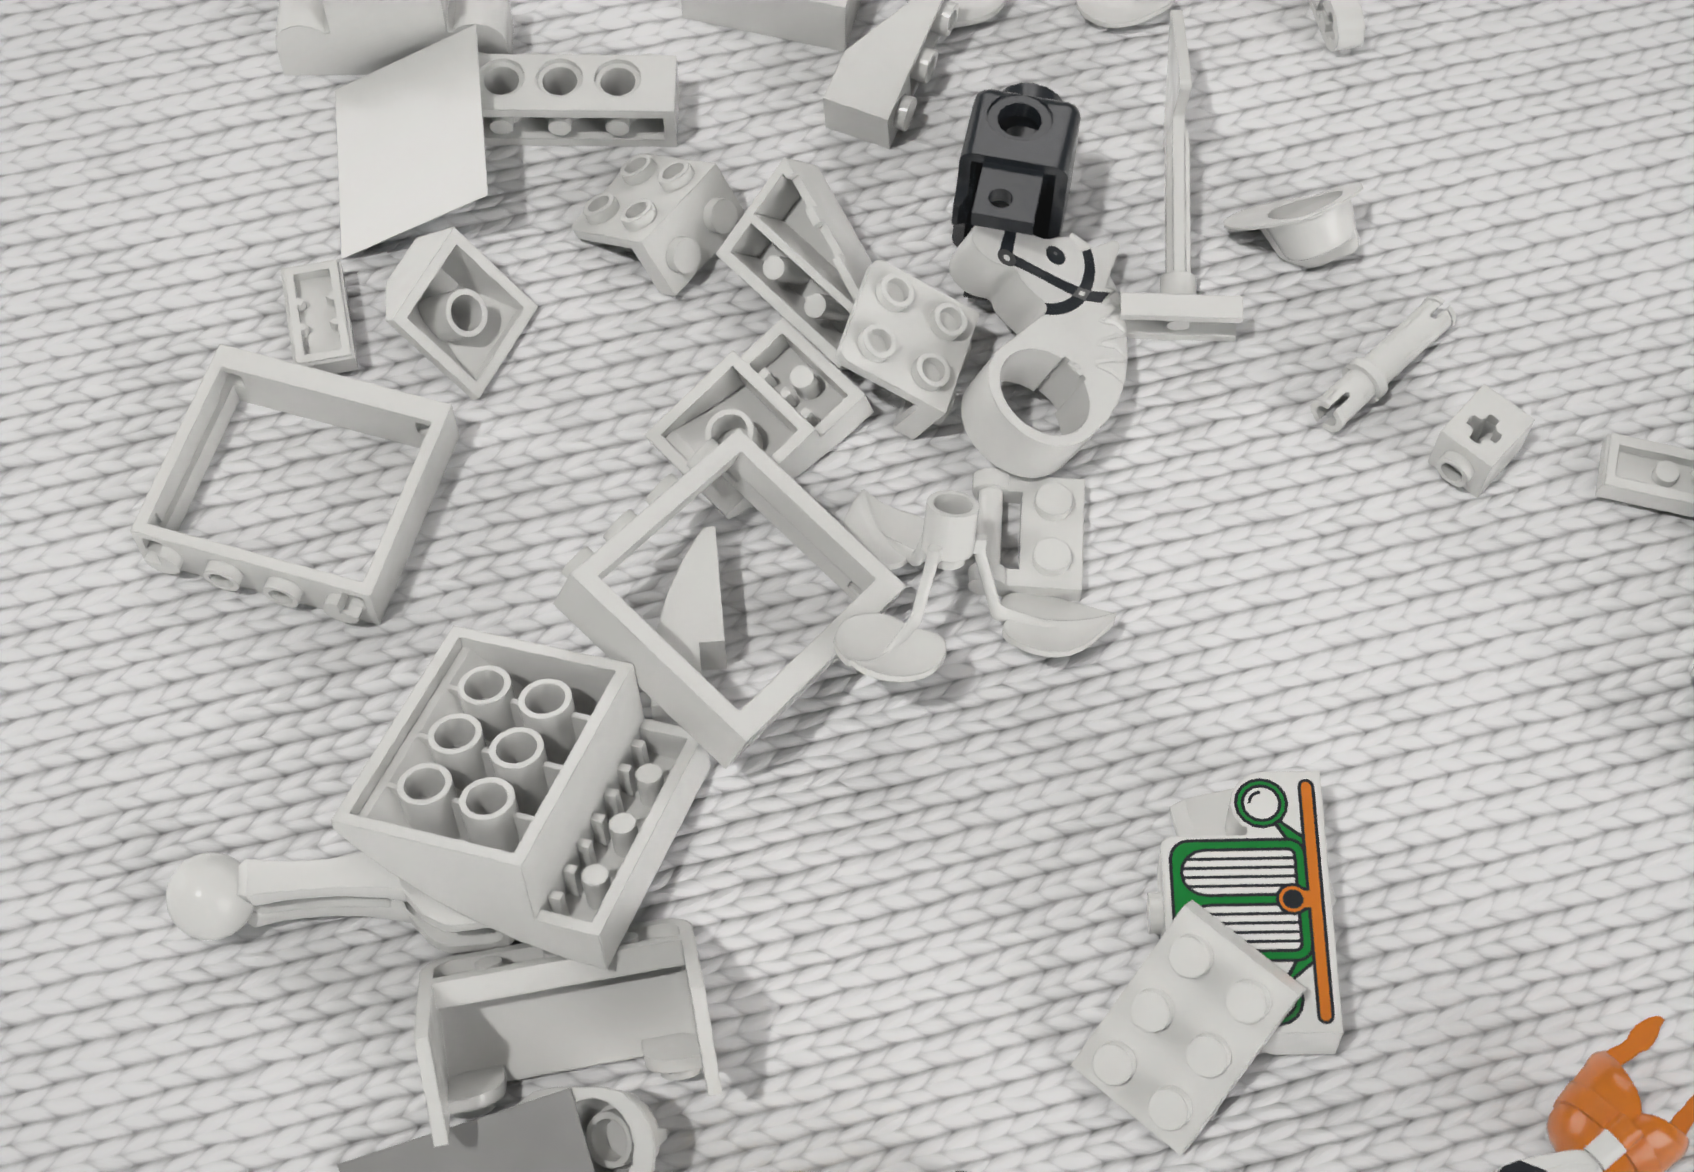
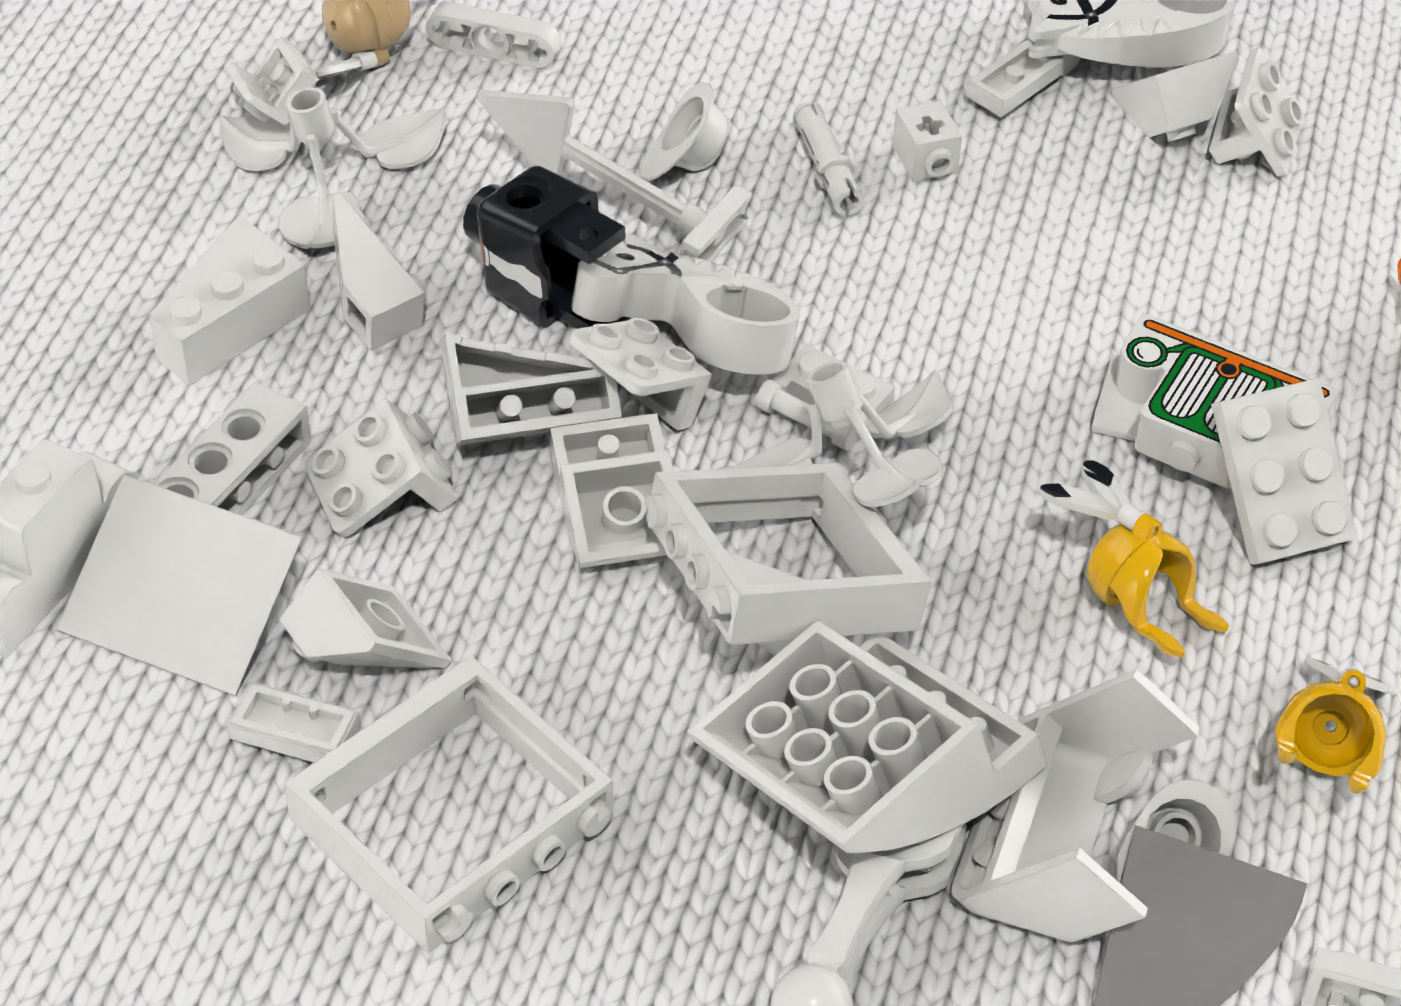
camera: 60 degrees left, 15 degrees down
(965, 918) = (1132, 554): none -> yellow hair

